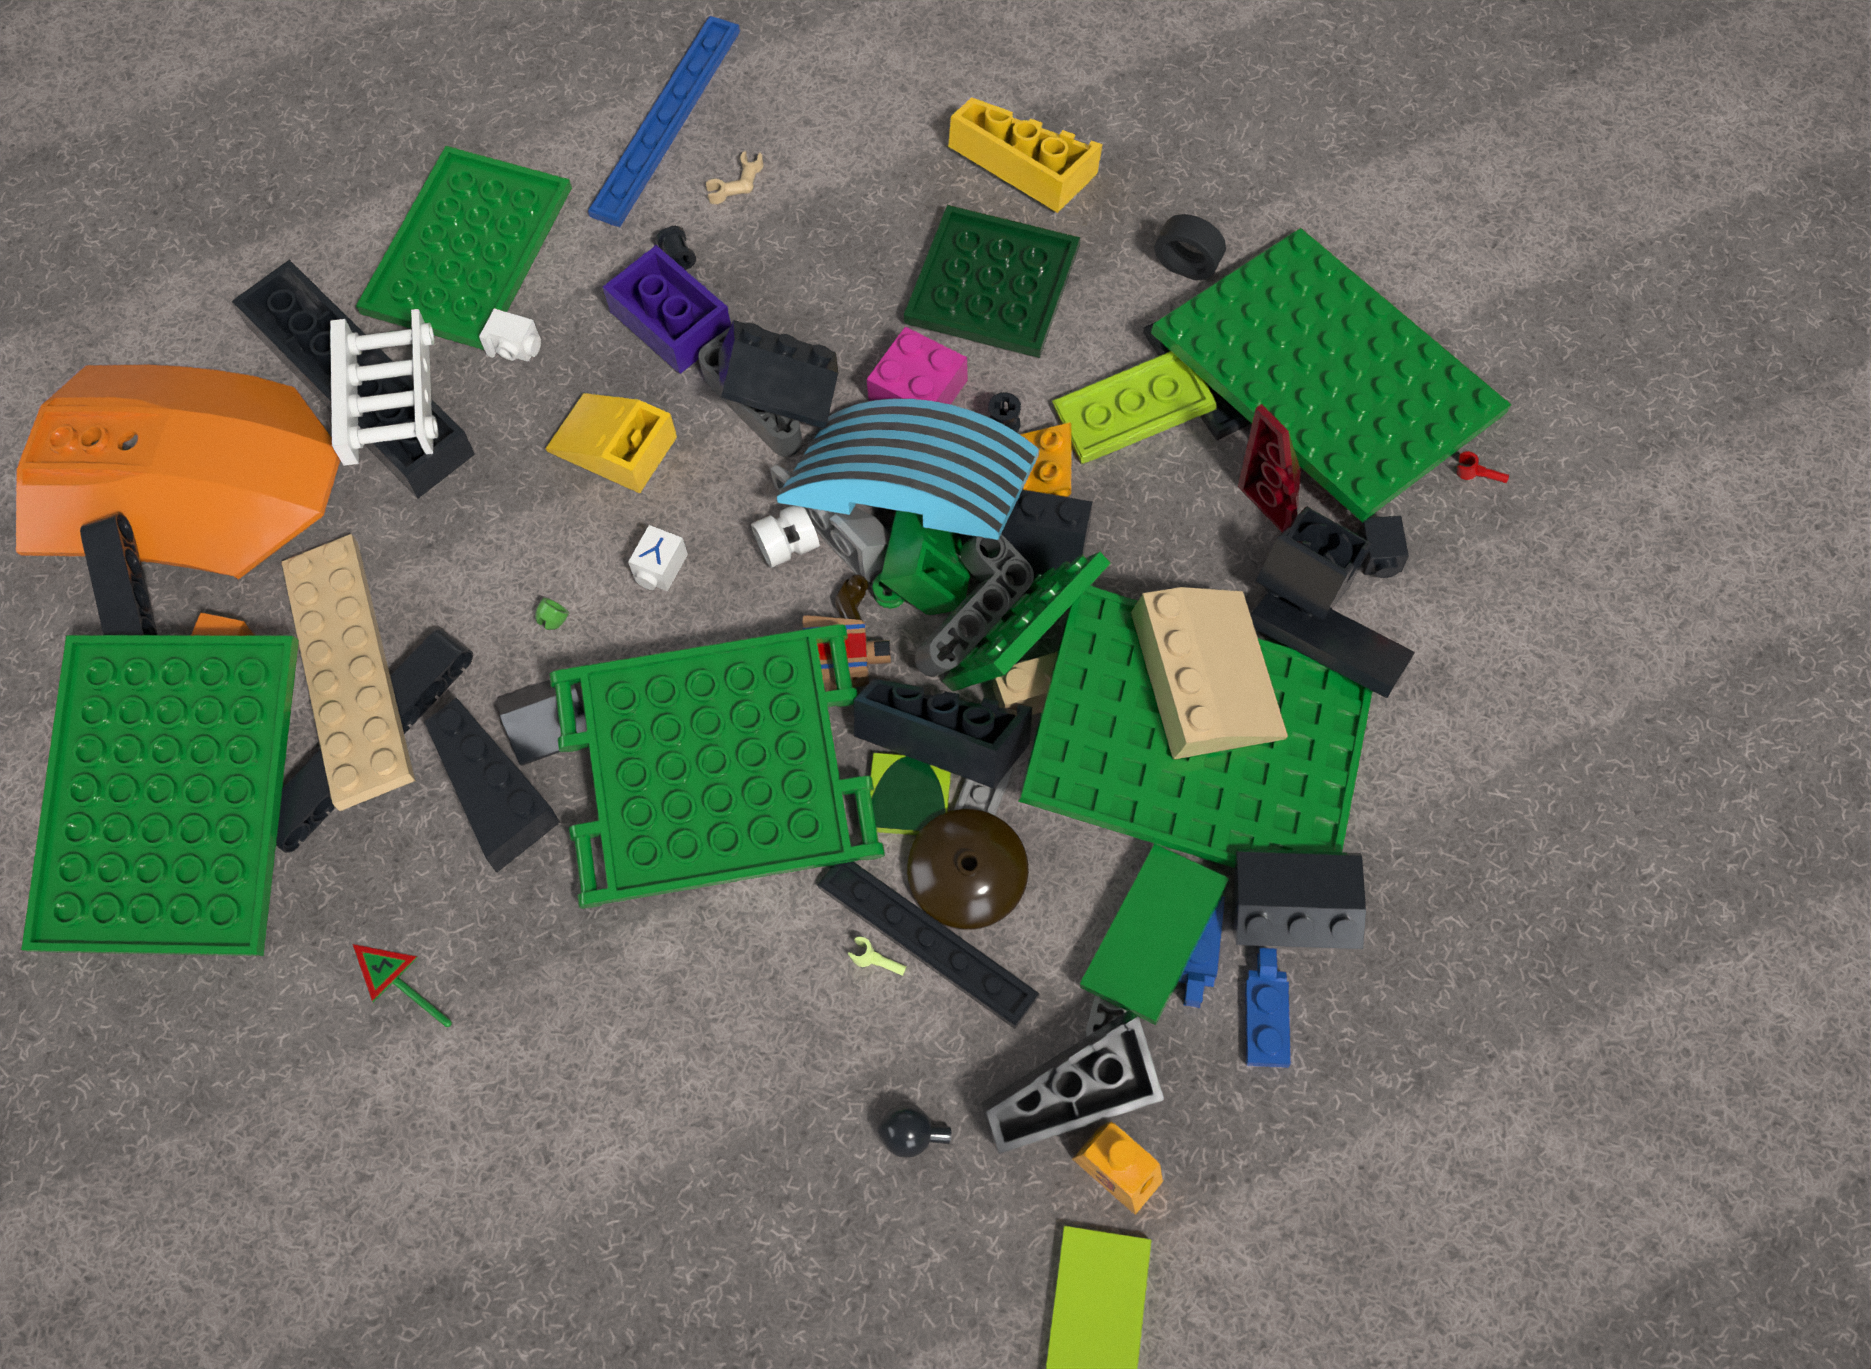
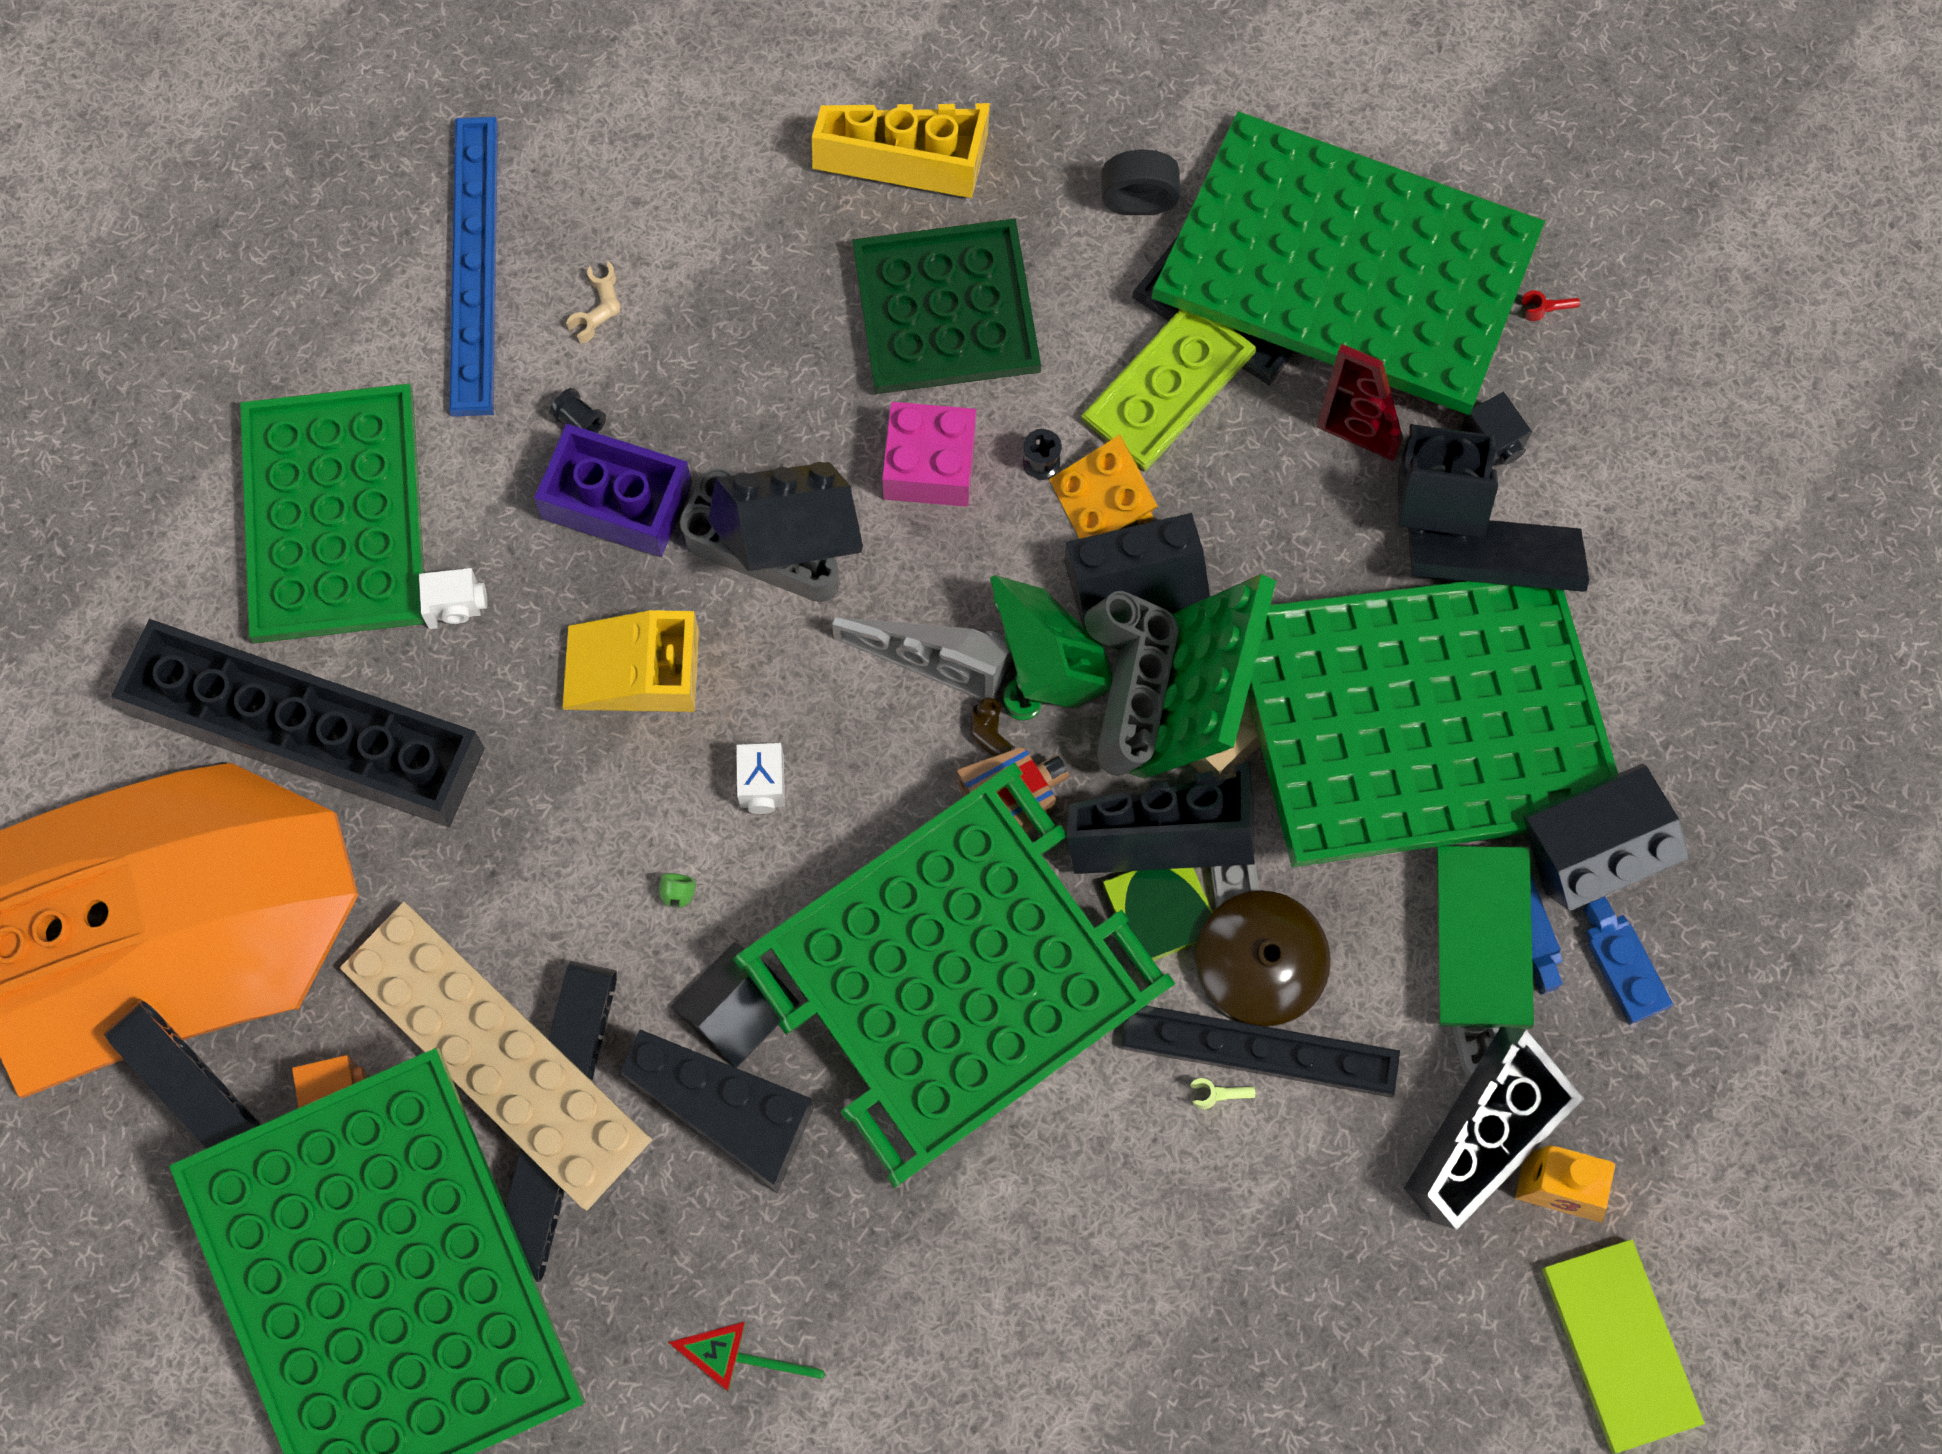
camera: 30 degrees left, 5 degrees up
(347, 375) = (337, 760): white fence -> none
(772, 538) = (875, 701): white wheel -> none
(909, 1130) = (1350, 1250): black piece -> none
(917, 460) = (988, 553): medium azure slope -> none
(1206, 670) = (1404, 646): tan slope -> none

